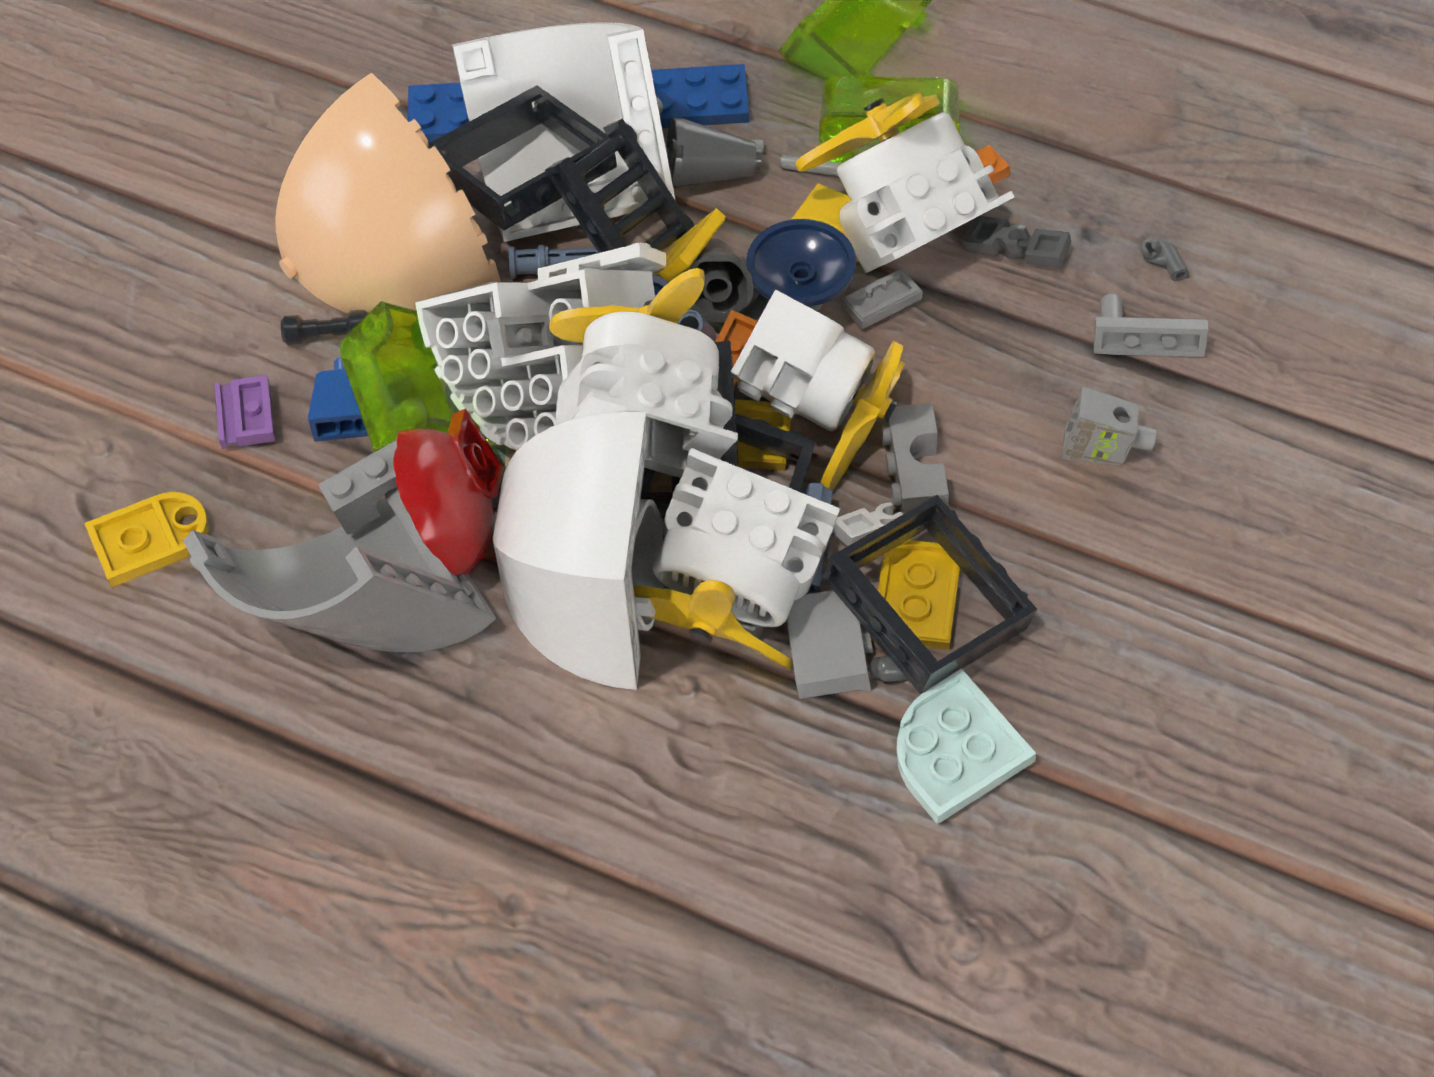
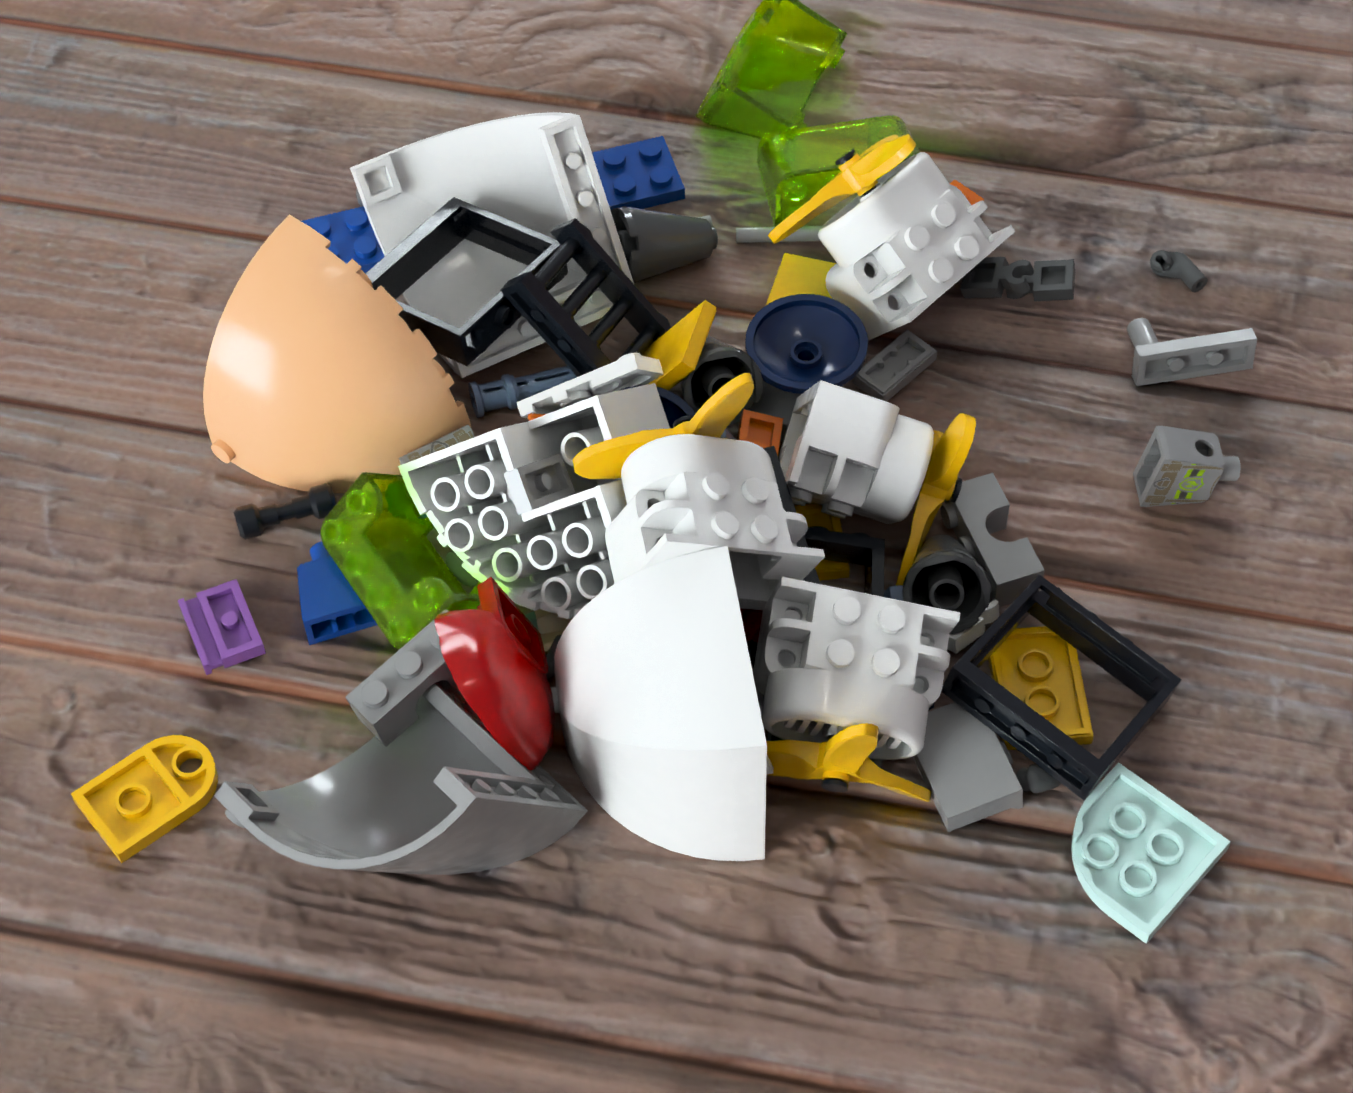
camera: 15 degrees left, 0 degrees up
(857, 487) = (949, 580): none -> dark grey cone

